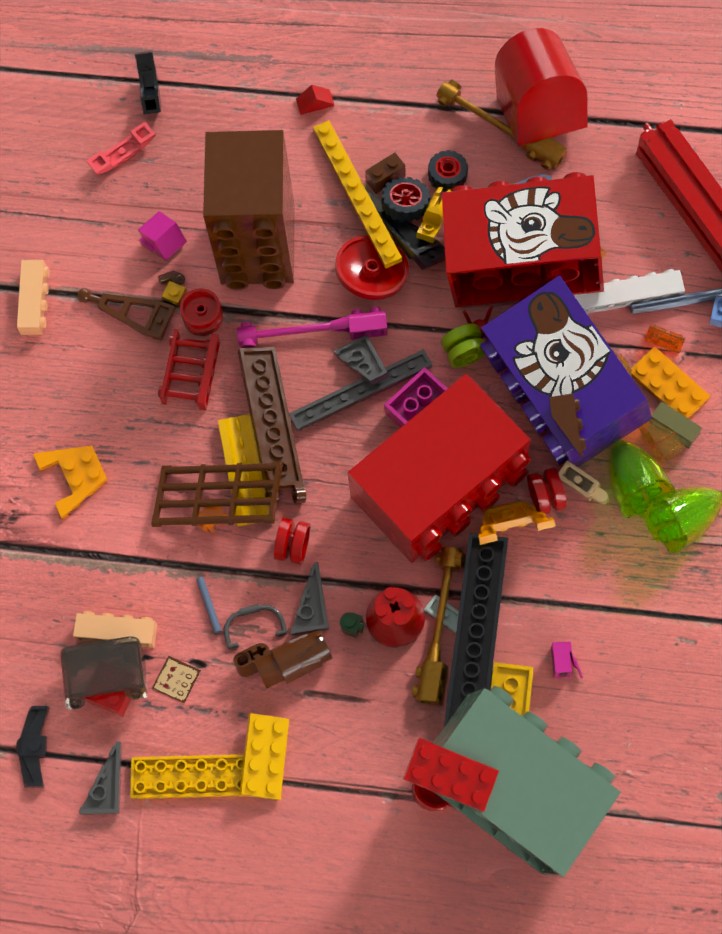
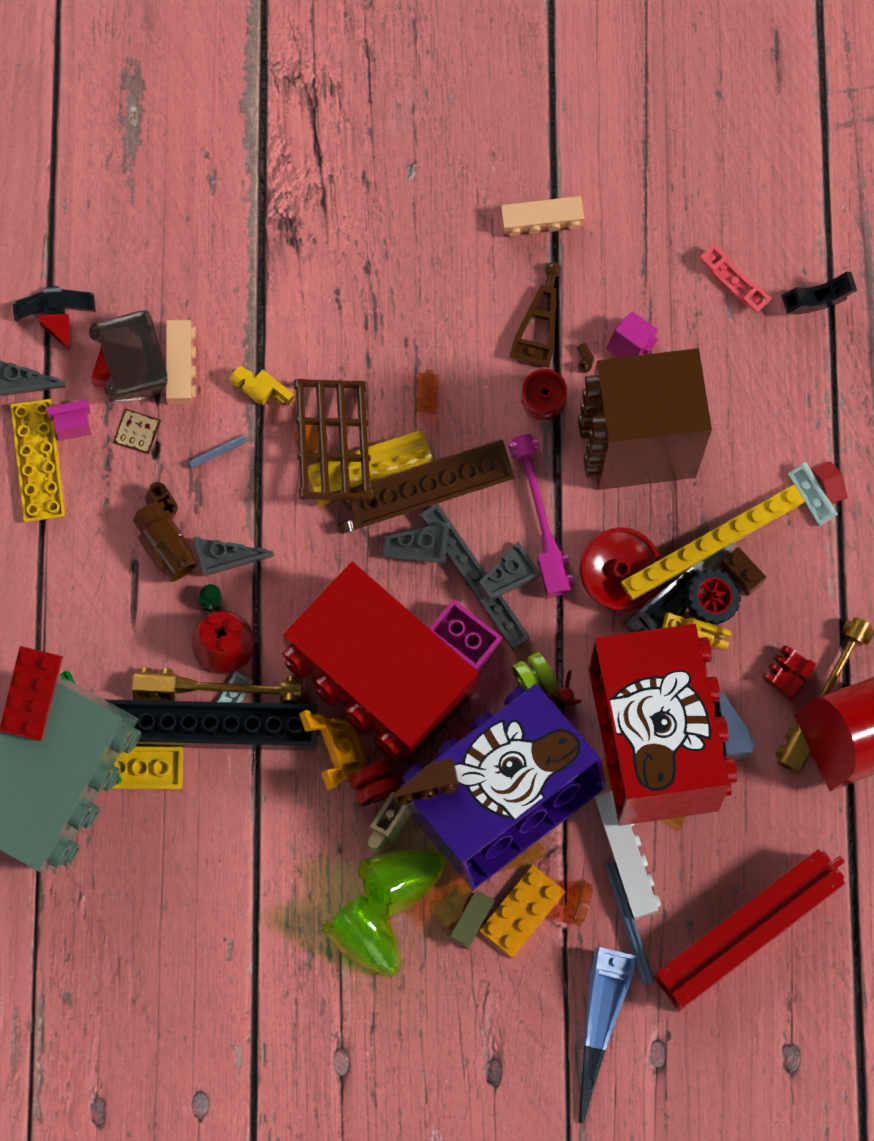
camera: 75 degrees right, 5 degrees up
(60, 743) = (58, 326): none -> red slope
(81, 471) = (350, 300): light orange wing -> none
(153, 557) = (261, 387): none -> yellow plate
(156, 737) = (70, 419): none -> dark pink plate
(174, 293) = (567, 363): yellow plate -> none
(181, 413) = (427, 392): none -> clear orange hinge
(204, 380) = (486, 411): red fence -> none
(249, 610) = (216, 494): dark grey piece -> none
(264, 757) = (62, 528): yellow plate -> none
(292, 541) = (290, 523): red wheel -> none
(323, 113) = (813, 494): none -> light aqua tile
(326, 432) = (419, 545): none -> dark grey wing
(449, 161) = (747, 649): black wheel -> none
(486, 148) = (799, 671): none -> red legs
(561, 660) = (191, 817): dark pink piece -> none

